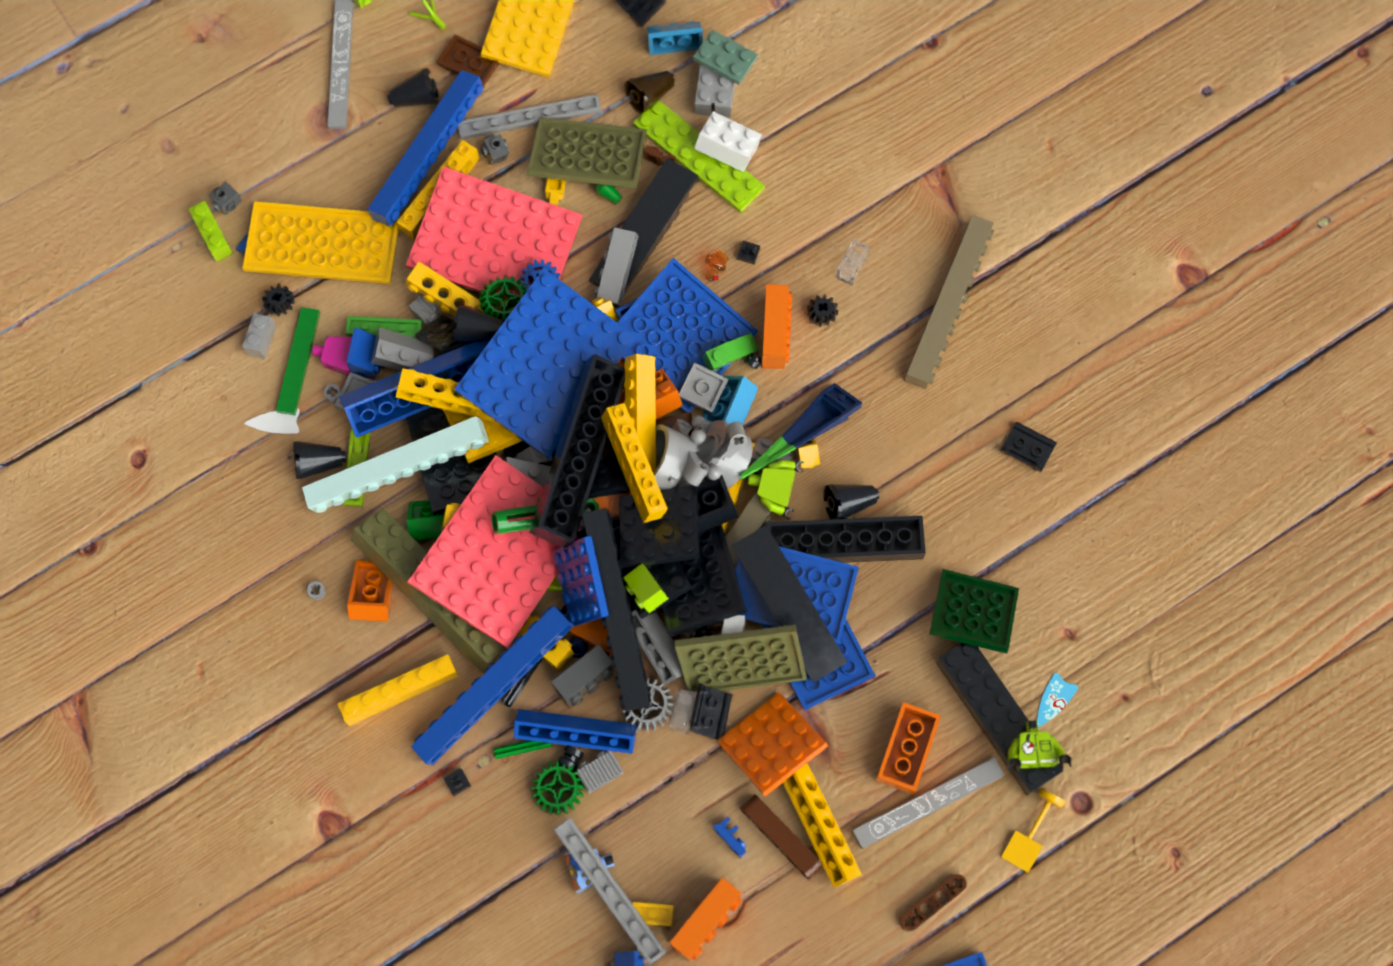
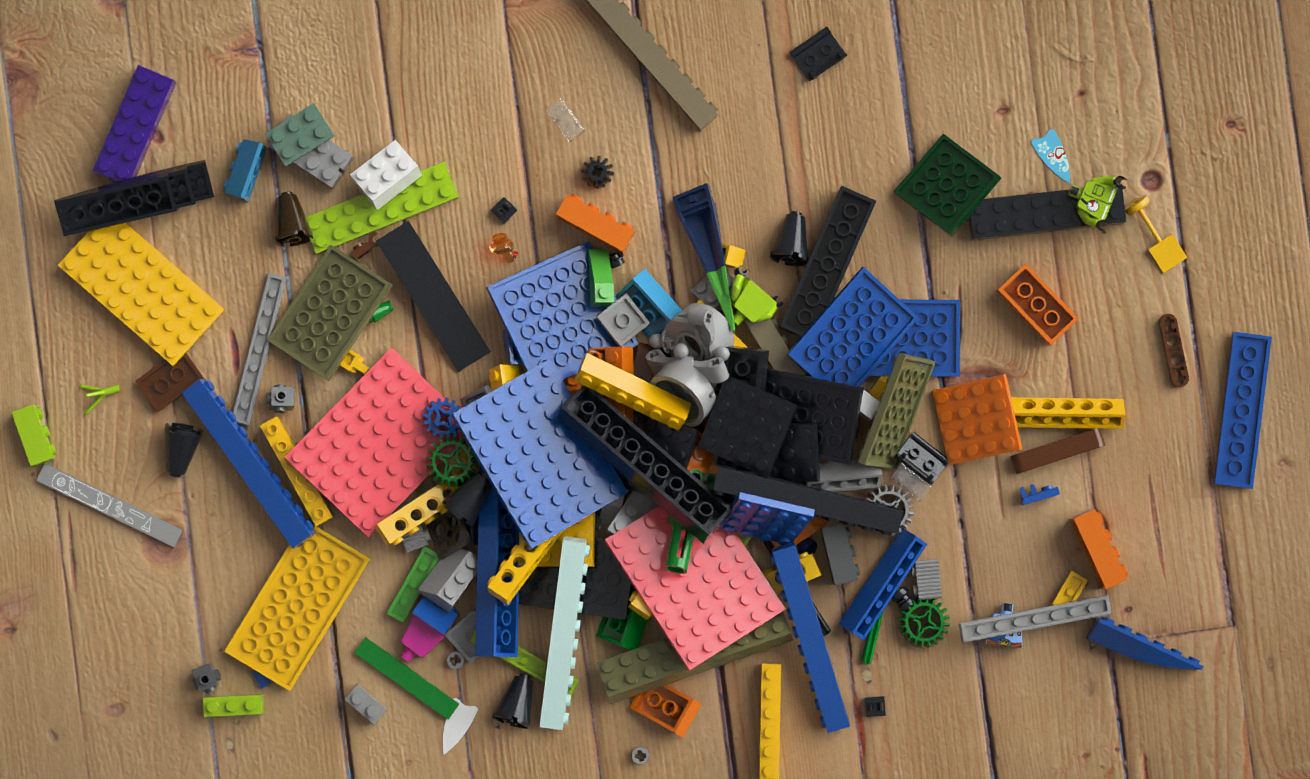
camera: 65 degrees left, 15 degrees up
(285, 296) = (342, 676): black gear -> none
(617, 265) = (464, 341): light grey brick -> none
(634, 463) = (684, 421): yellow brick -> none
(645, 588) = (799, 465): lime brick -> none
(789, 601) = (865, 344): black slope -> none
(928, 803) = (1089, 310): light grey tile -> none

